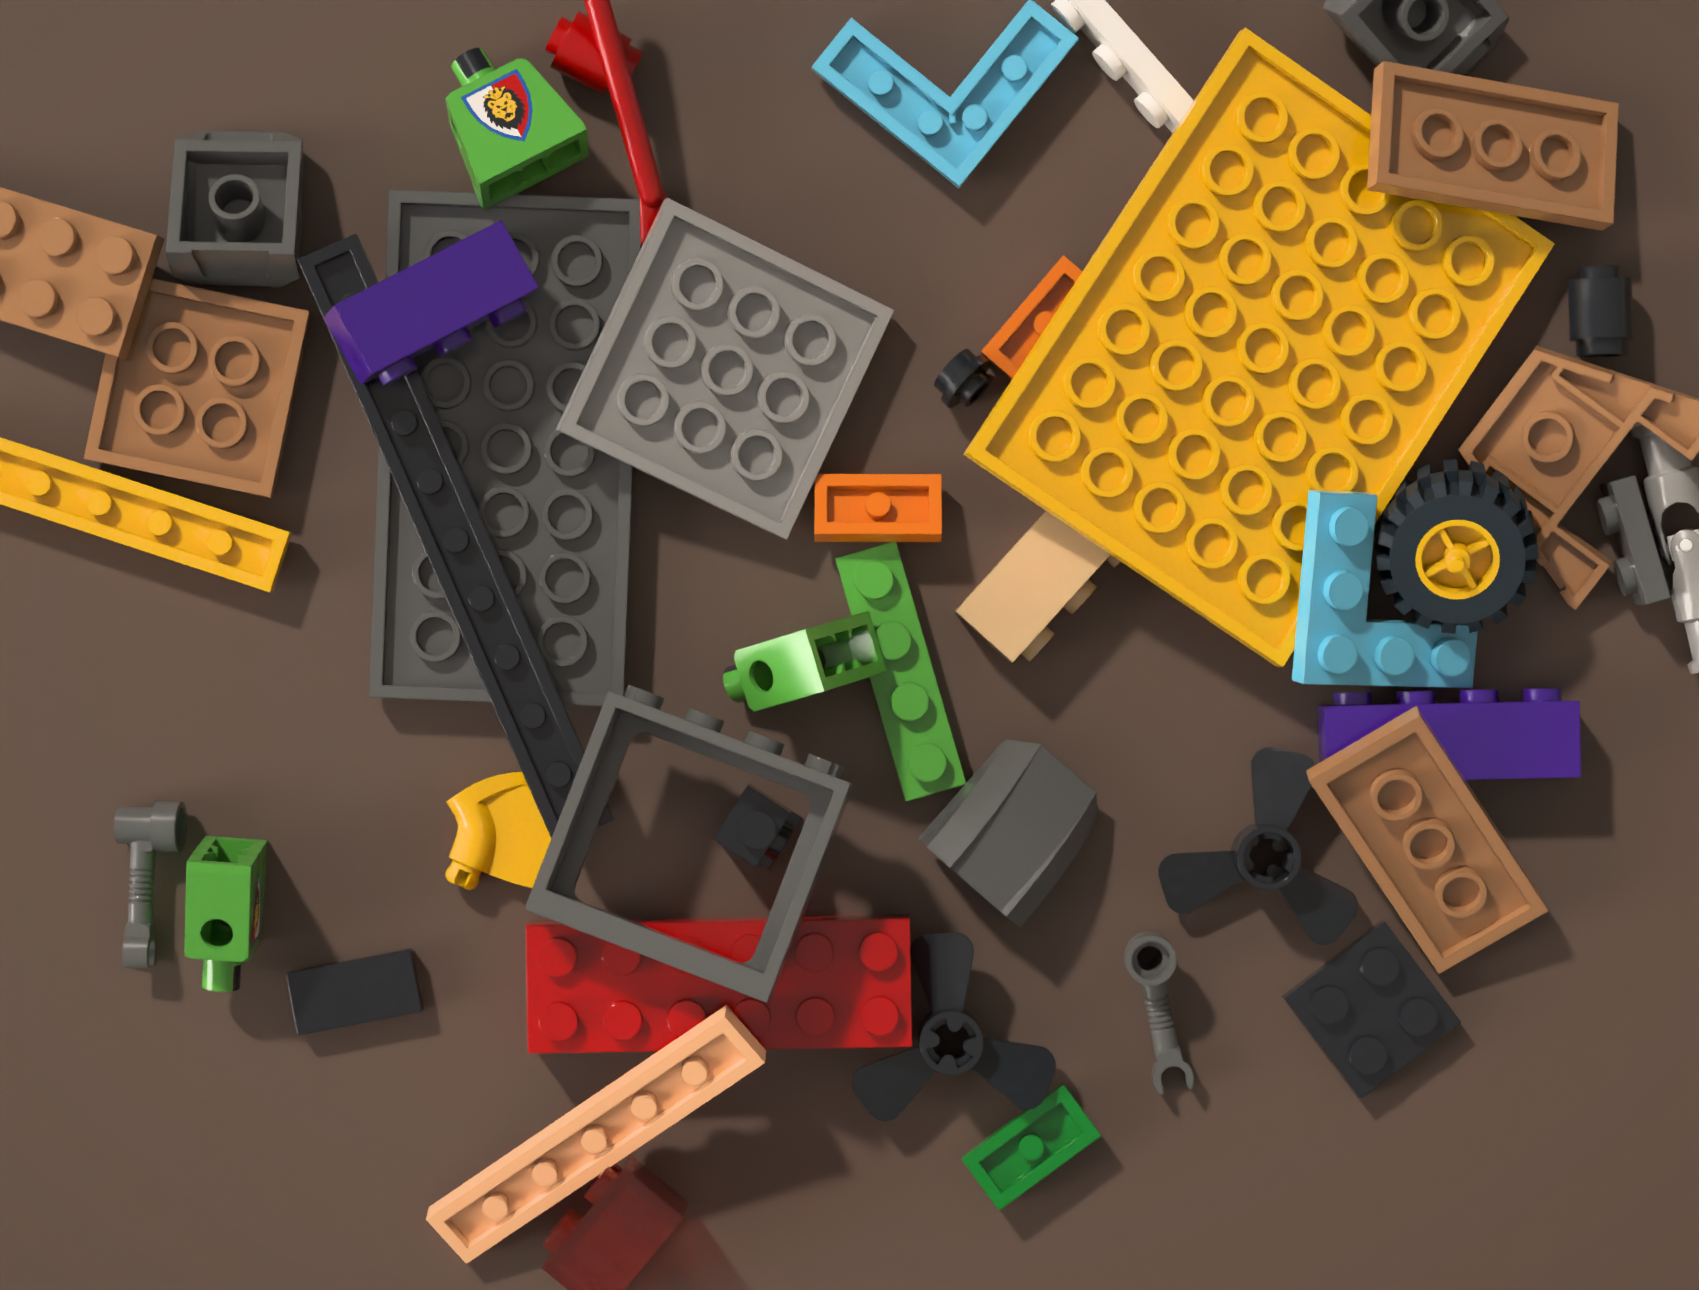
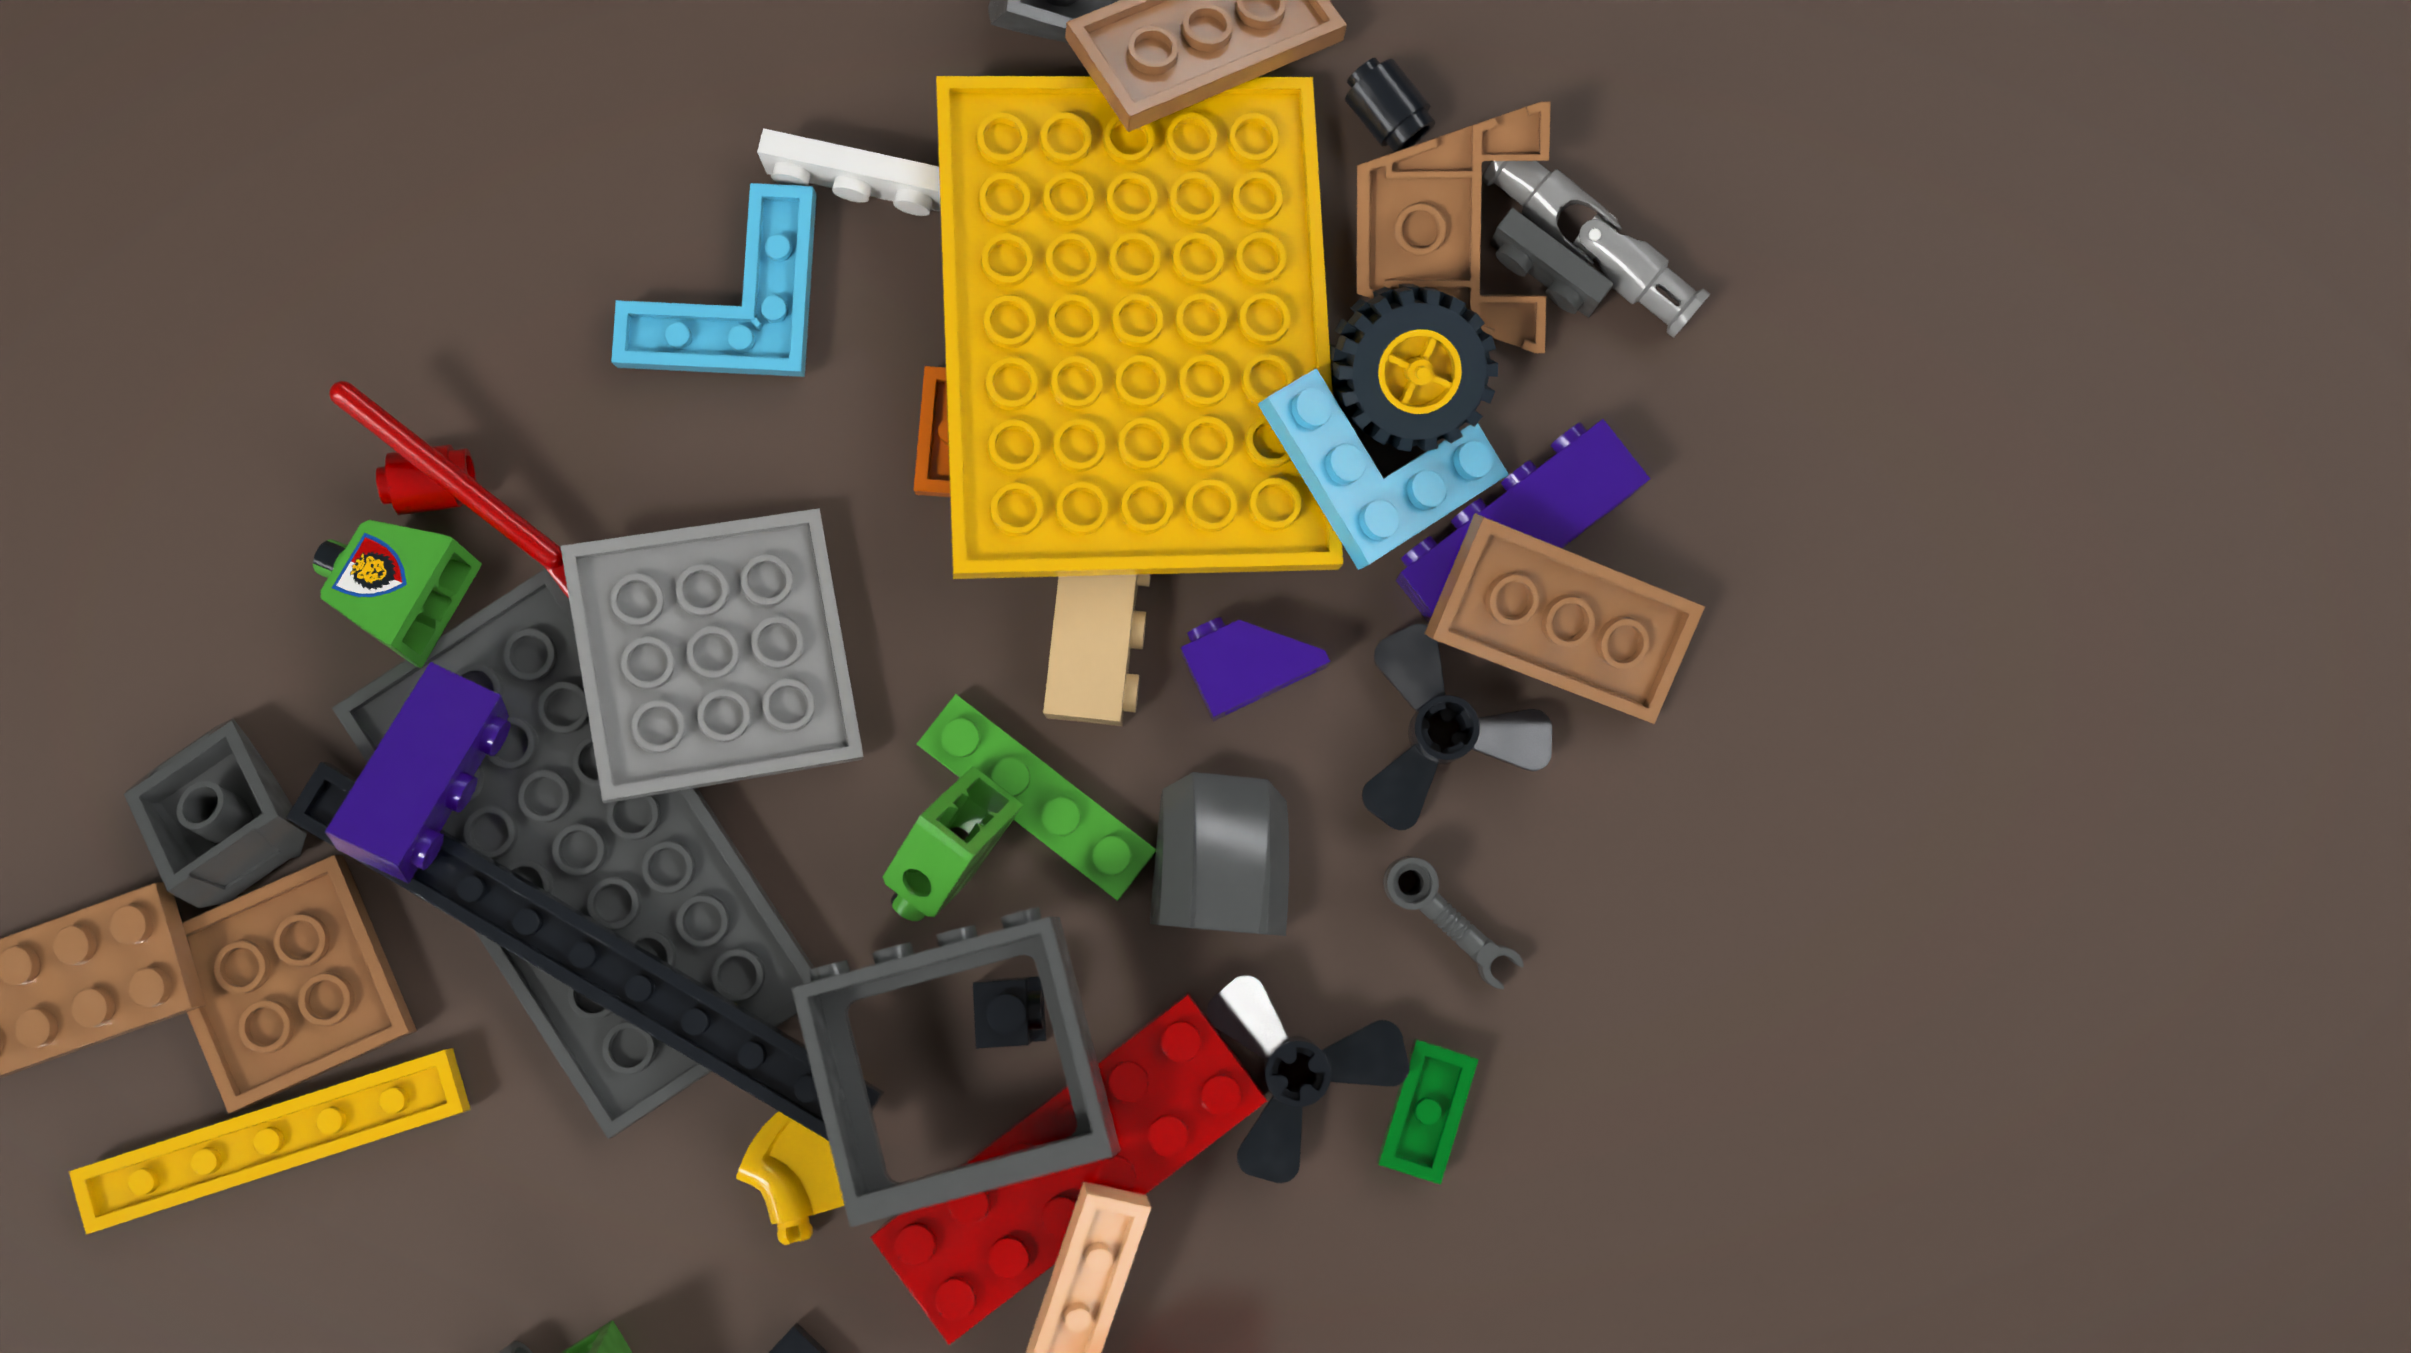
camera: 40 degrees left, 5 degrees down
(878, 508) = (921, 677): orange plate -> none
(964, 379) = (916, 523): black plate -> none
(1145, 686) = (1245, 663): none -> dark purple slope
(1371, 1009) = (1621, 793): black plate -> none

